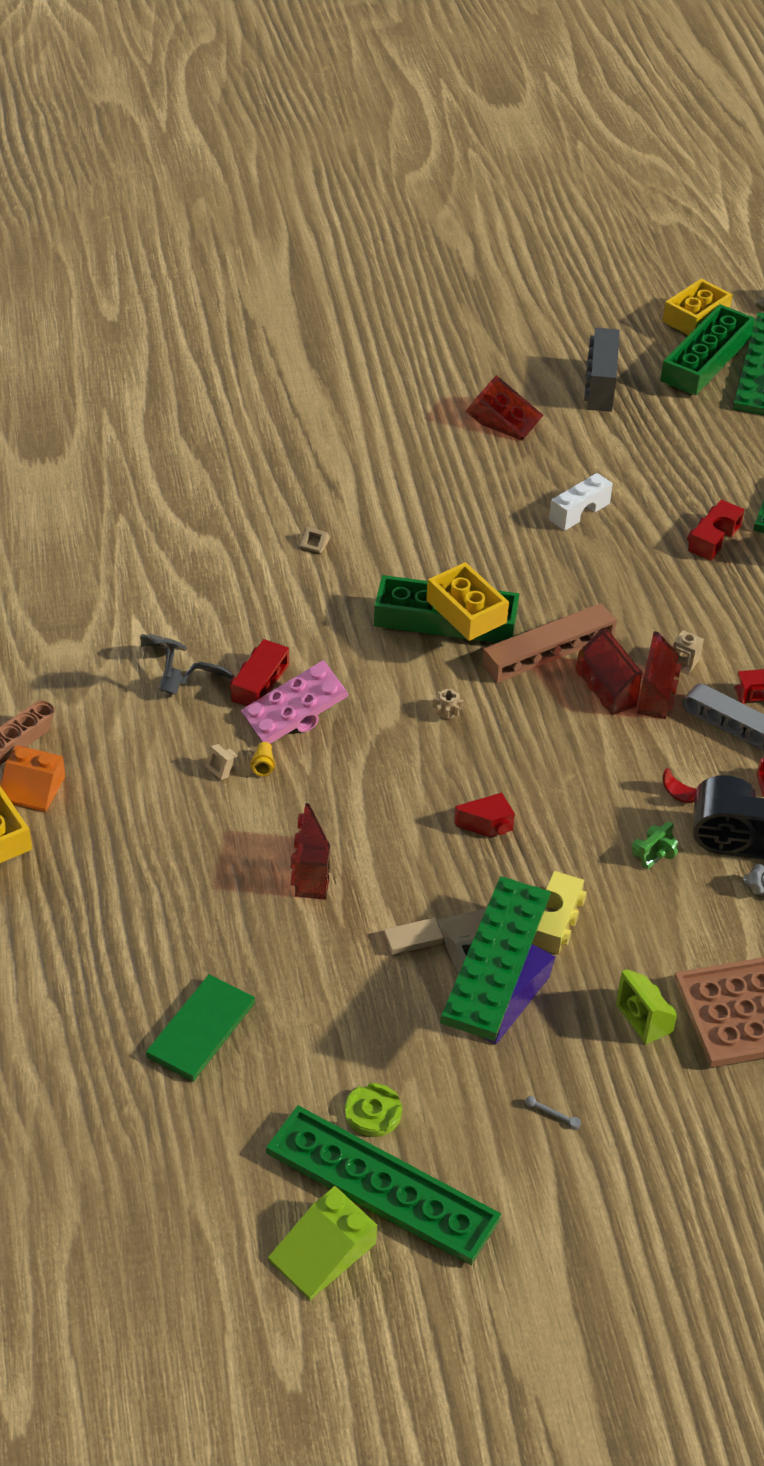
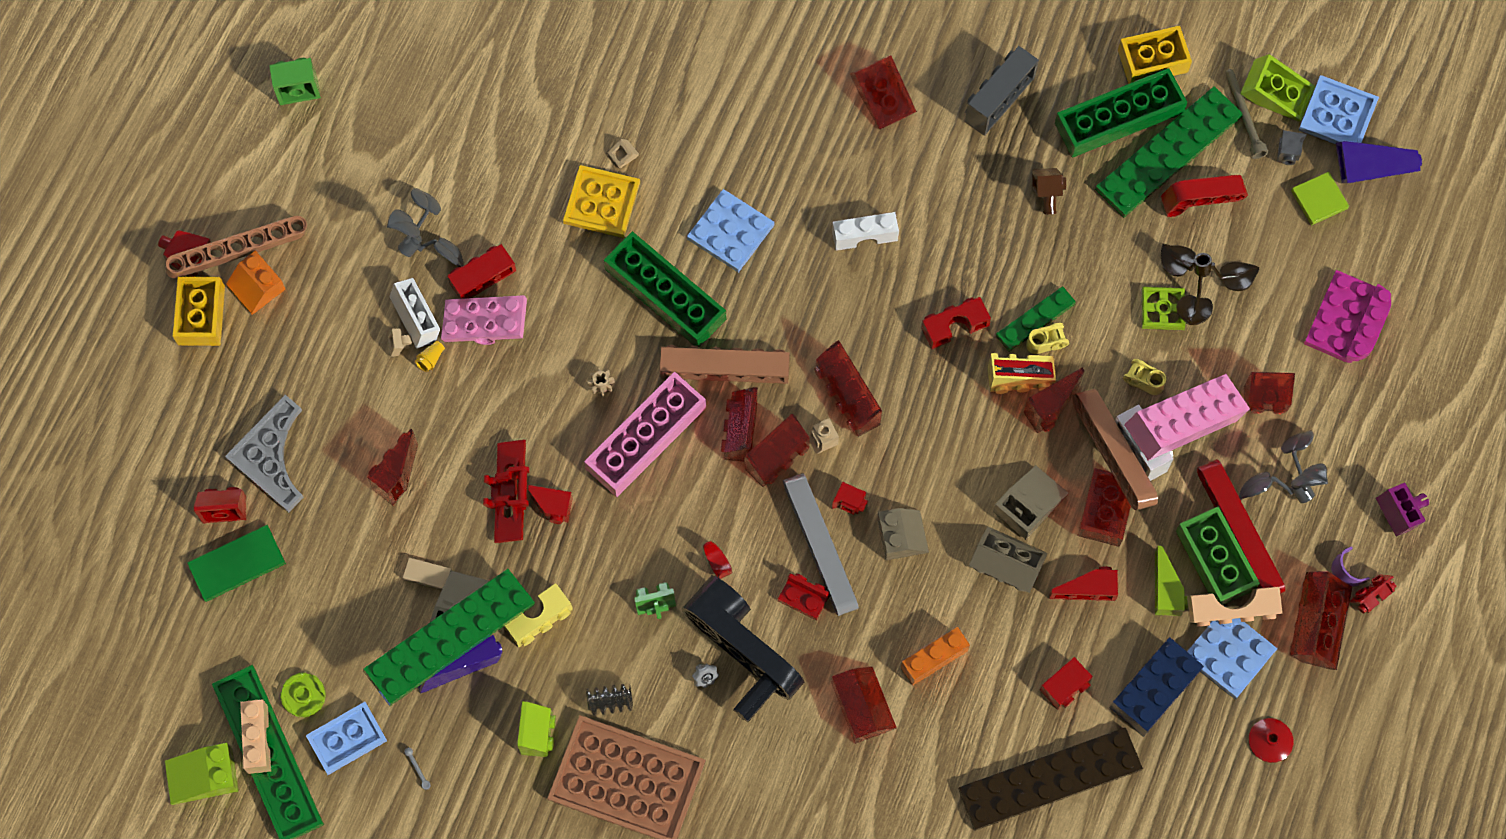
camera: 35 degrees right, 25 degrees up
(147, 978) = (221, 505): none -> red slope
(155, 918) = (261, 454): none -> light grey plate
(222, 727) = (414, 313): none -> white brick
(327, 578) = (601, 201): none -> yellow plate
(377, 1175) = (254, 741): none -> light nougat arch
(433, 832) = (505, 491): none -> red piece
(456, 1122) = (346, 738): none -> light blue plate
(458, 545) = (730, 230): none -> light blue plate
(467, 601) = (666, 303): yellow brick -> none
(528, 721) = (645, 434): none -> bright pink brick
(677, 604) = (848, 389): none -> clear red slope
(690, 944) = (609, 699): none -> clear smoke piece
(700, 409) = (1048, 184): none -> reddish brown brick

